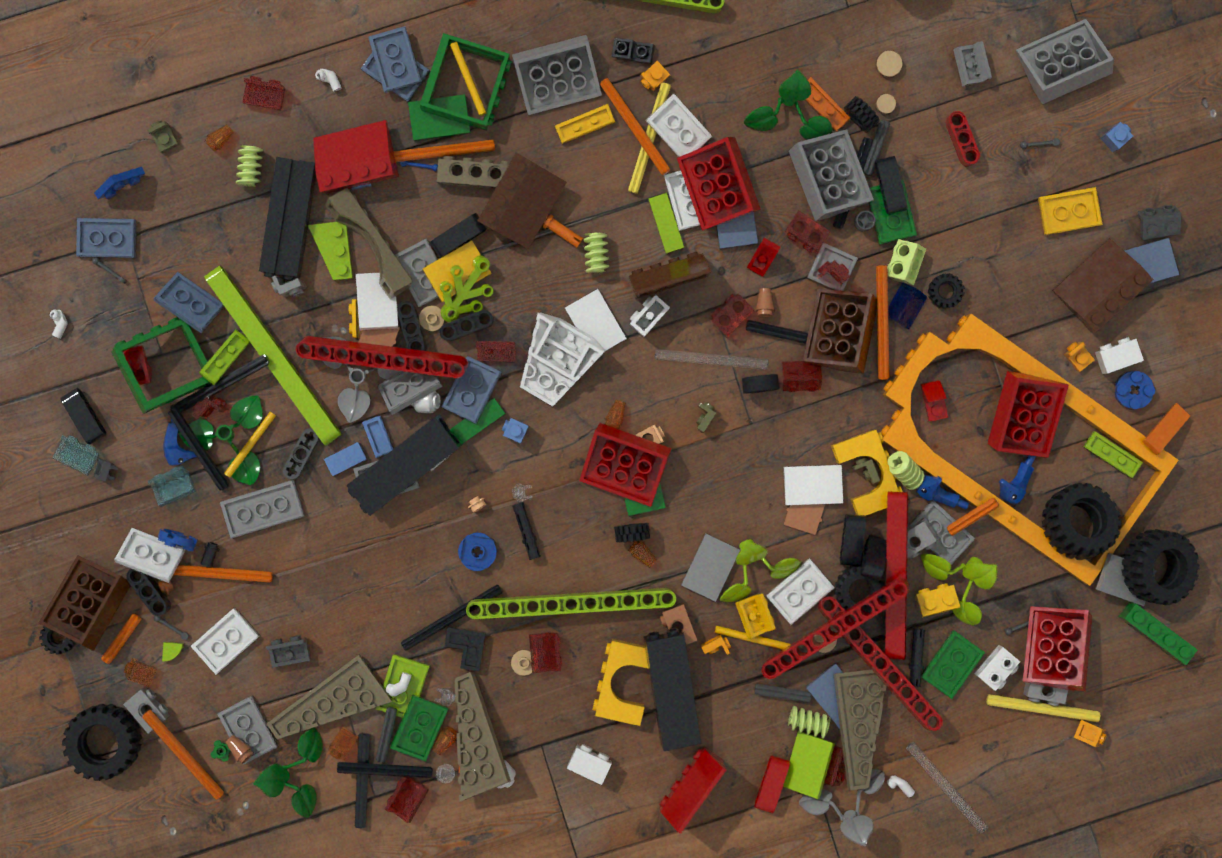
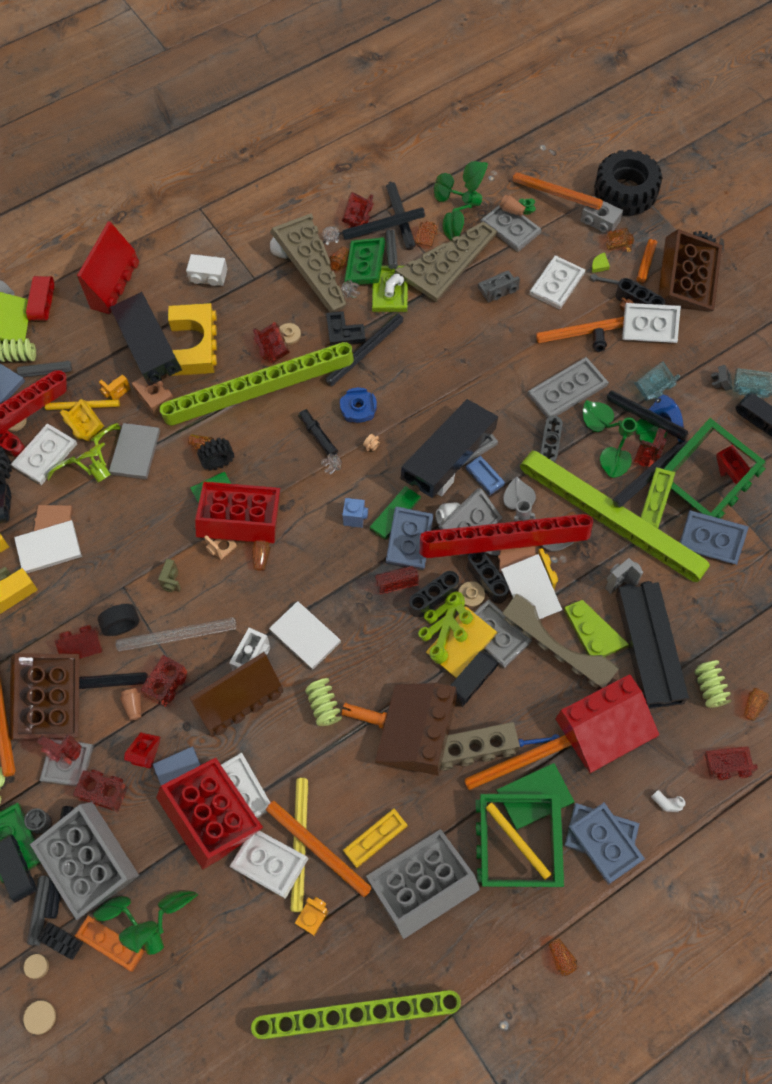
camera: 165 degrees right, 25 degrees down
(173, 537) = (632, 338): blue plate -> none
(249, 445) = (601, 434): yellow bar -> none
(345, 459) = (508, 448): medium blue tile -> none
(557, 358) = (331, 589): white wedge -> none
(633, 51) = (344, 938): black slope -> none
(666, 223) = (257, 757): lime tile -> none

